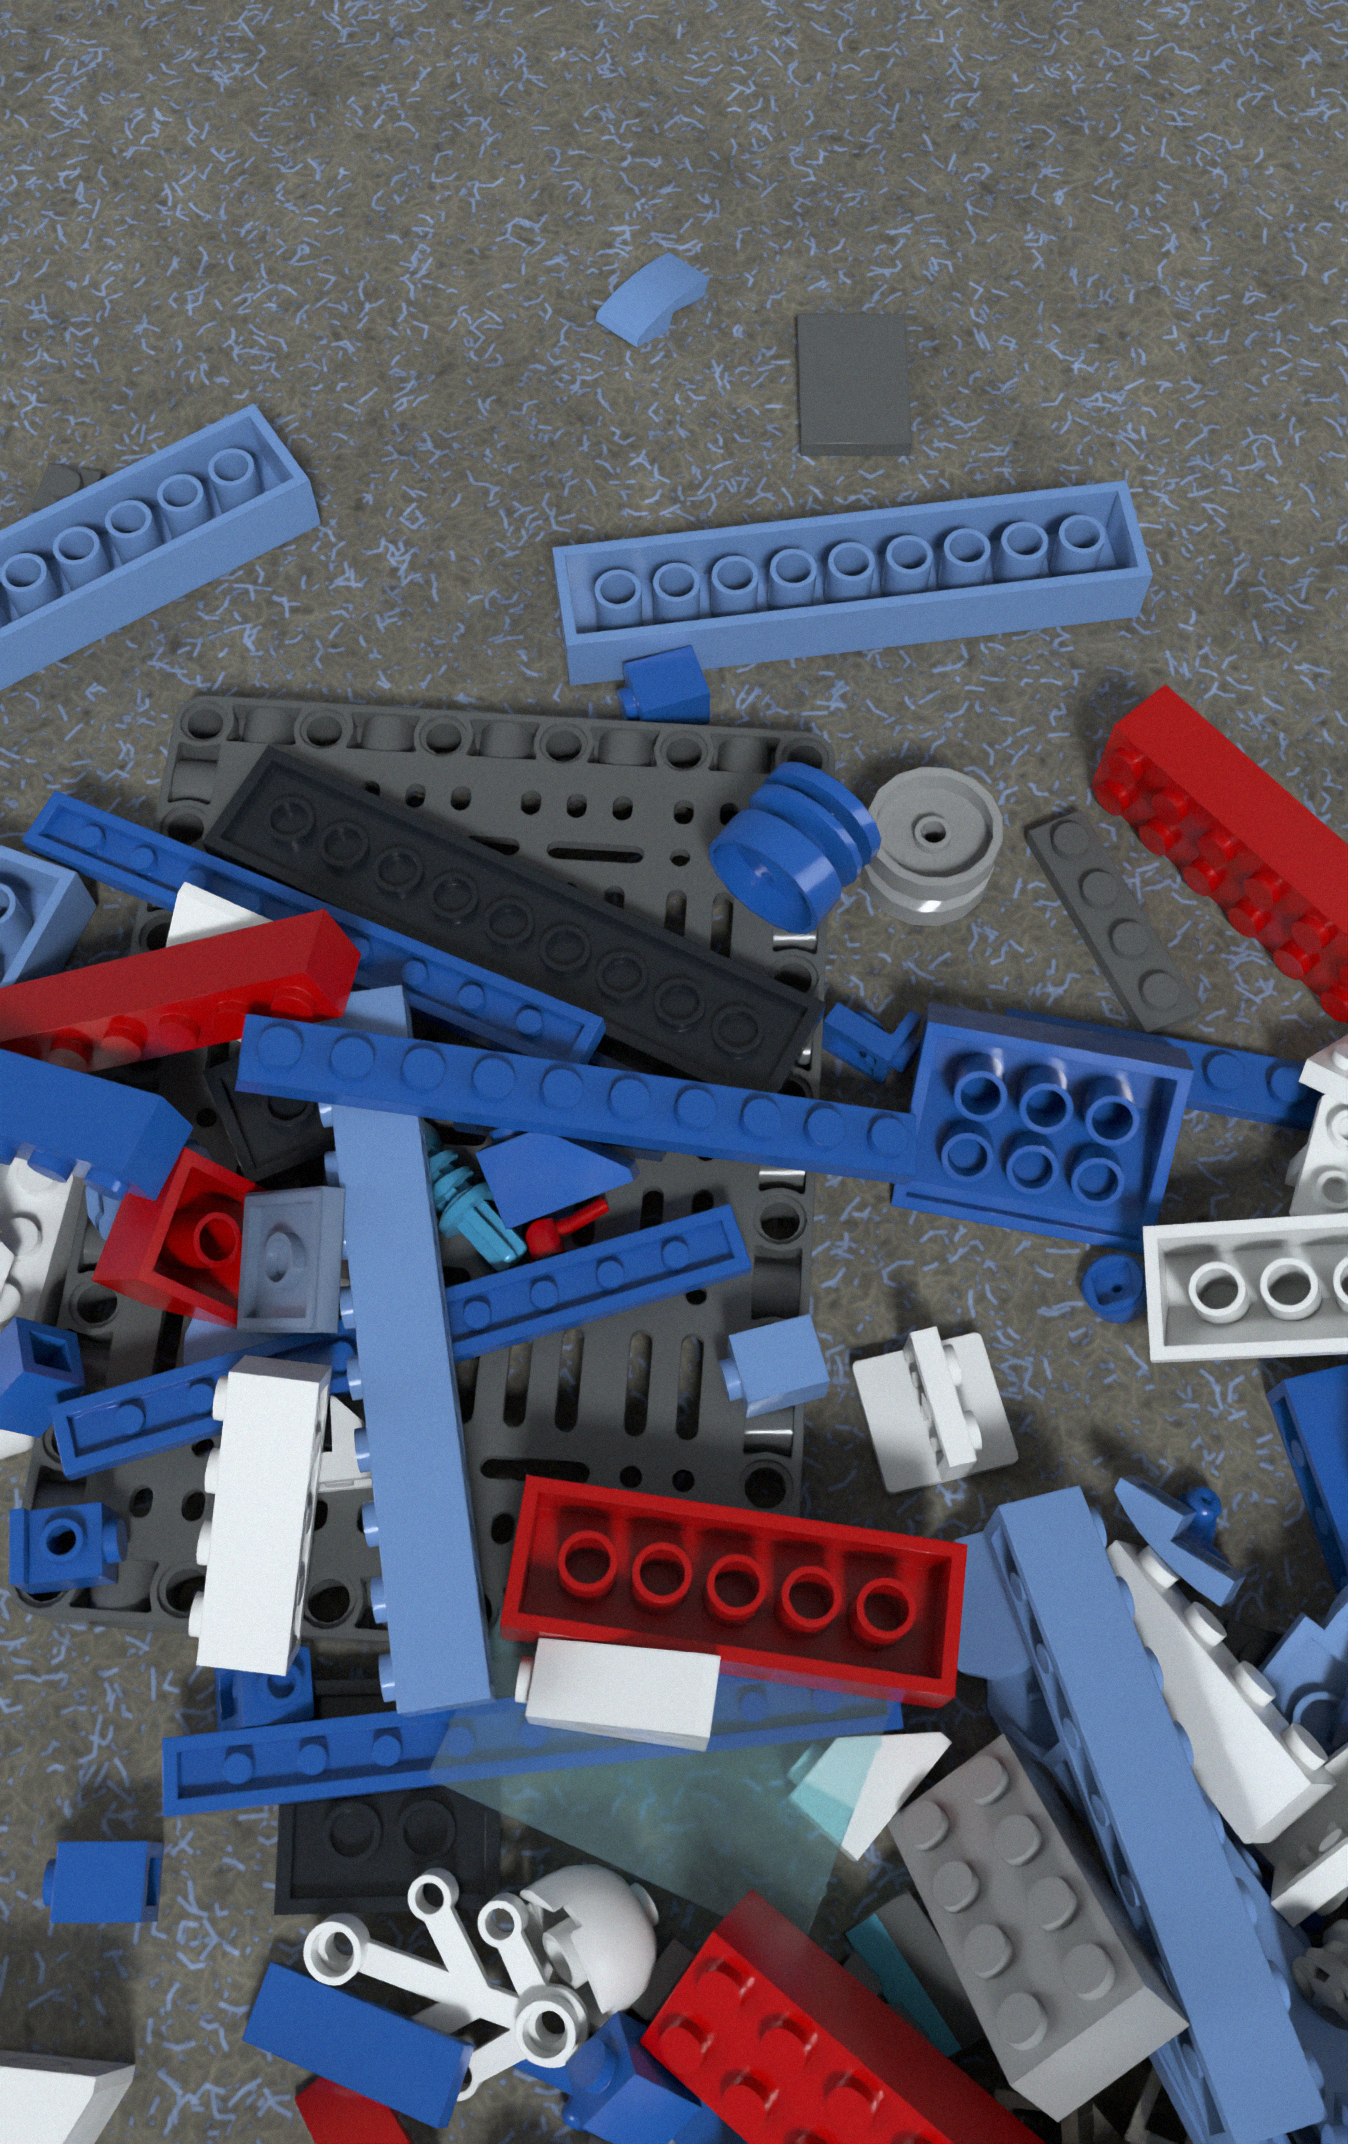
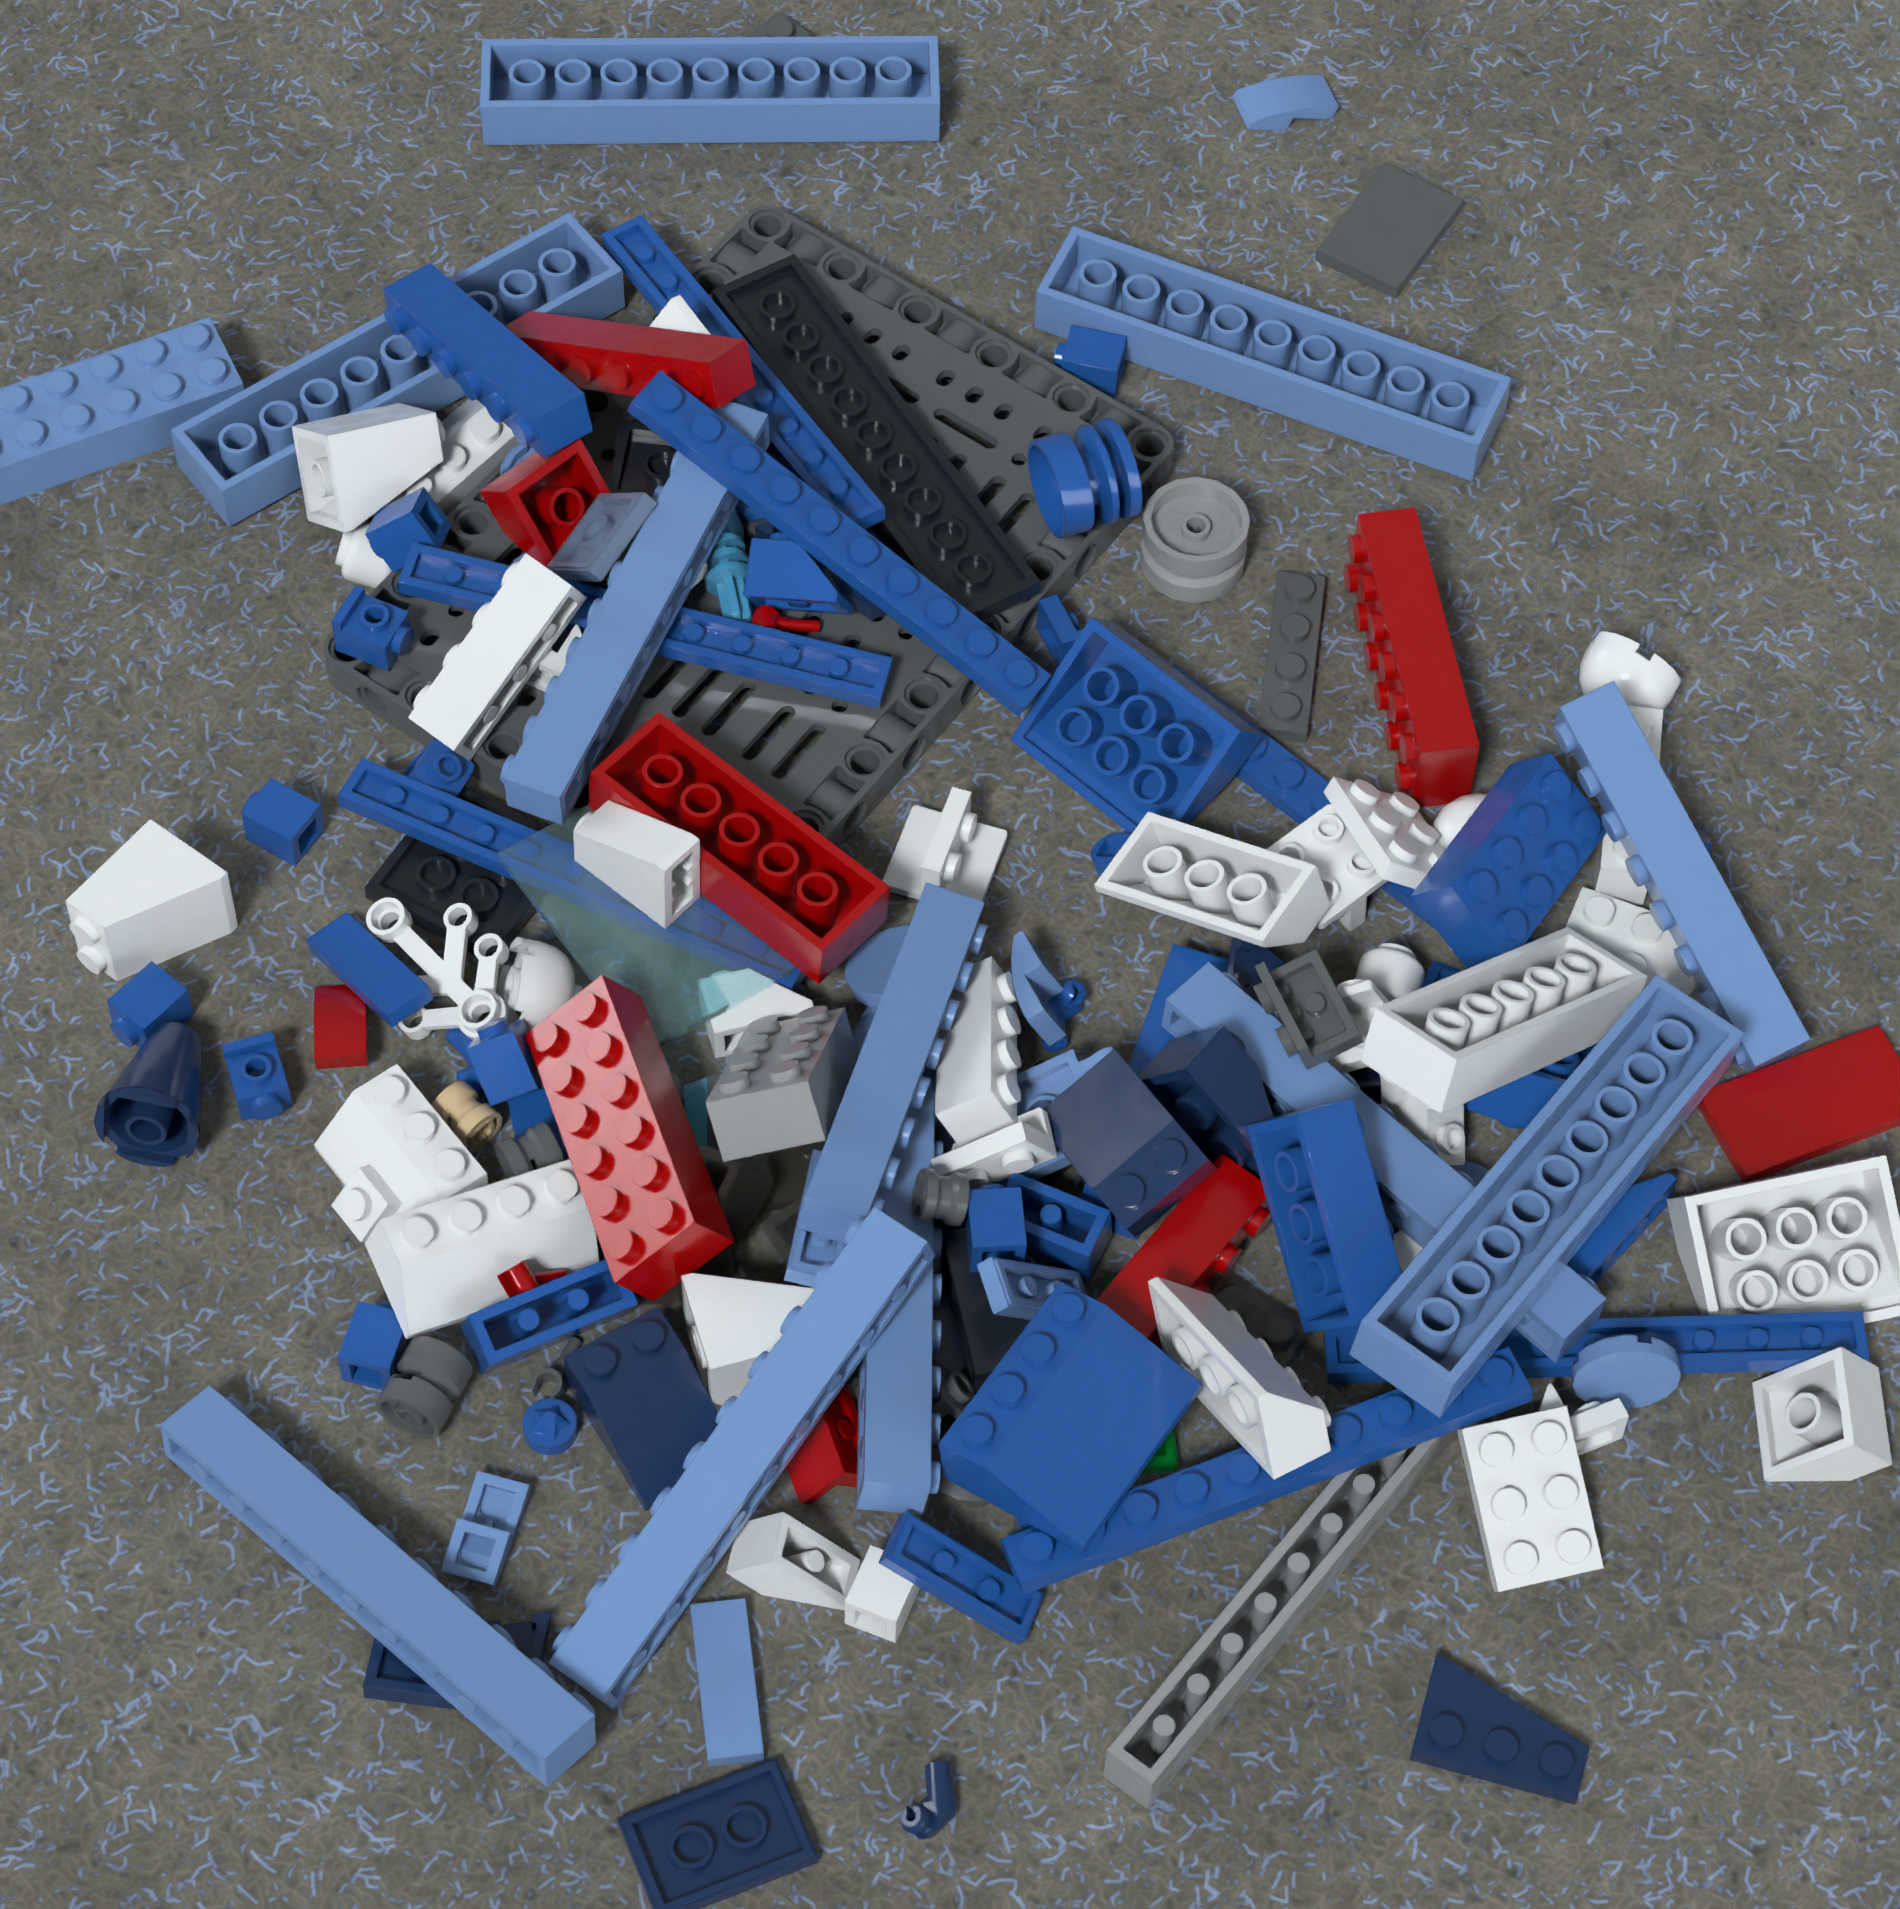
camera: 30 degrees right, 10 degrees down
(774, 1366) = (853, 758): medium blue brick -> none

